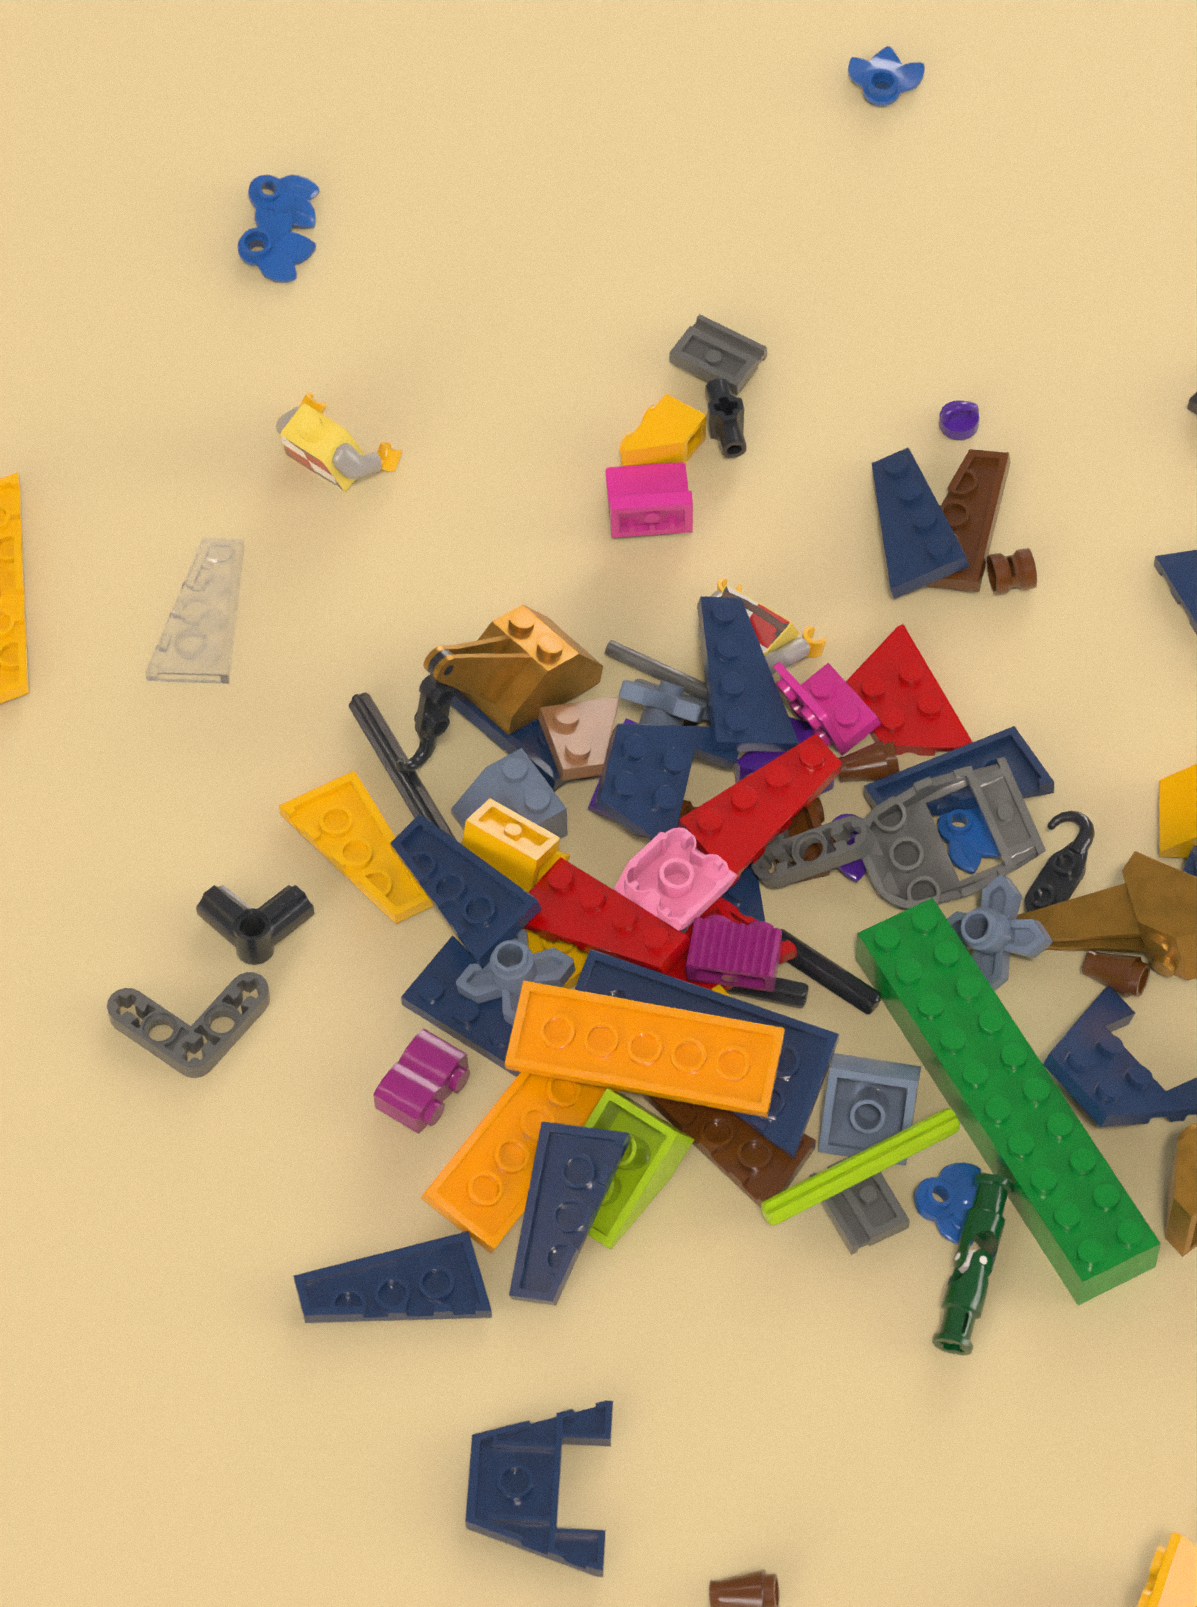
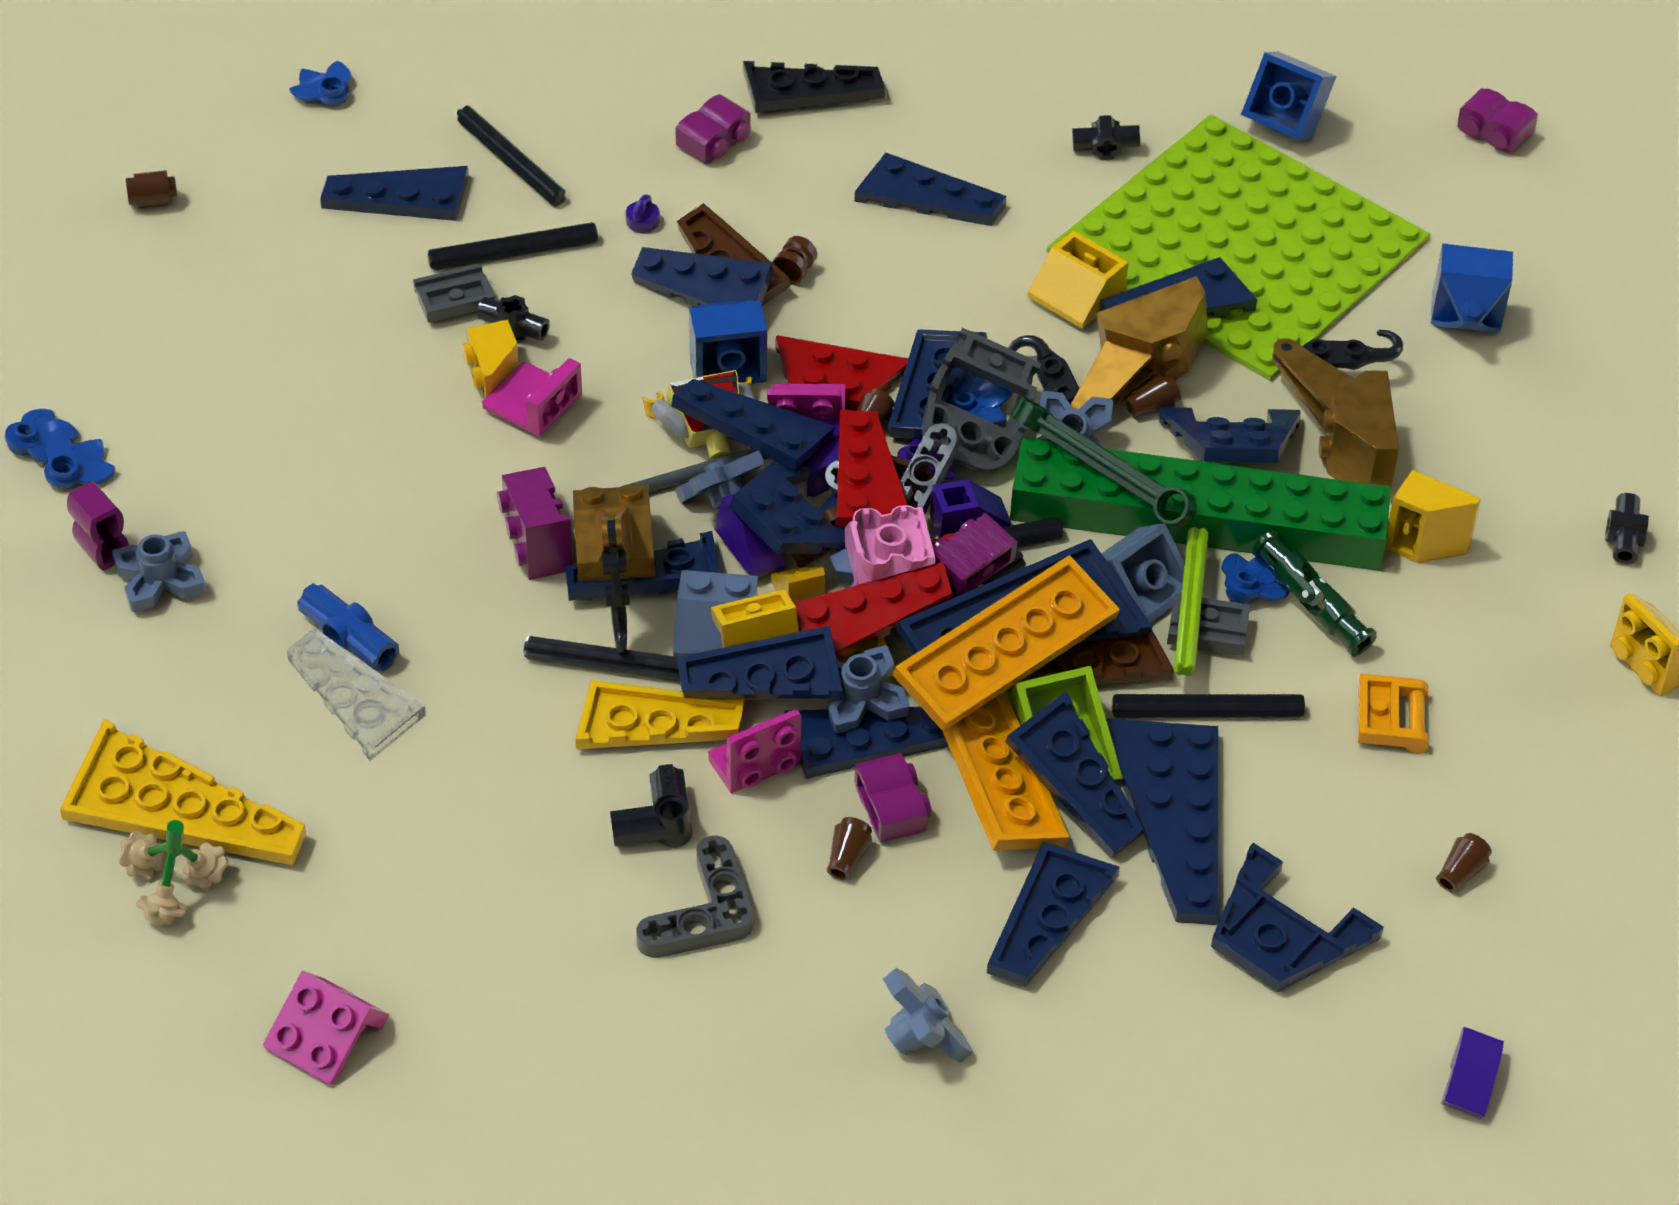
camera: 55 degrees left, 10 degrees down
(188, 1264) = (922, 1019): none -> sand blue plant
(201, 314) = (96, 523): none -> magenta brick
(207, 390) = (156, 567): none -> sand blue plant
(262, 561) = (348, 626): none -> blue piece
(328, 447) = (291, 529): torso -> none
(338, 1086) = (849, 844): none -> reddish brown cone
(380, 948) = (759, 752): none -> dark pink bracket
(501, 586) = (536, 522): none -> magenta wedge
(579, 735) = (696, 541): wing -> none
(604, 849) = (800, 582): none -> yellow slope
(626, 58) = (151, 189): none -> reddish brown brick
(630, 1299) = (1174, 793): none -> dark blue wing
(761, 1264) = (1208, 705): none -> black axle
(811, 231) = (411, 193): none -> dark blue wing
(813, 916) = (964, 500): none -> dark purple slope
(823, 354) = (512, 245): none -> black axle
(837, 591) = (729, 339): none -> blue piece
(879, 1411) = (1380, 712): none -> light orange plate
(935, 271) = (511, 155): none -> black axle
(951, 888) = (1042, 421): none -> dark green piece
(1122, 392) = (713, 129): none -> magenta brick
(1153, 1303) = (1431, 519): none -> yellow slope

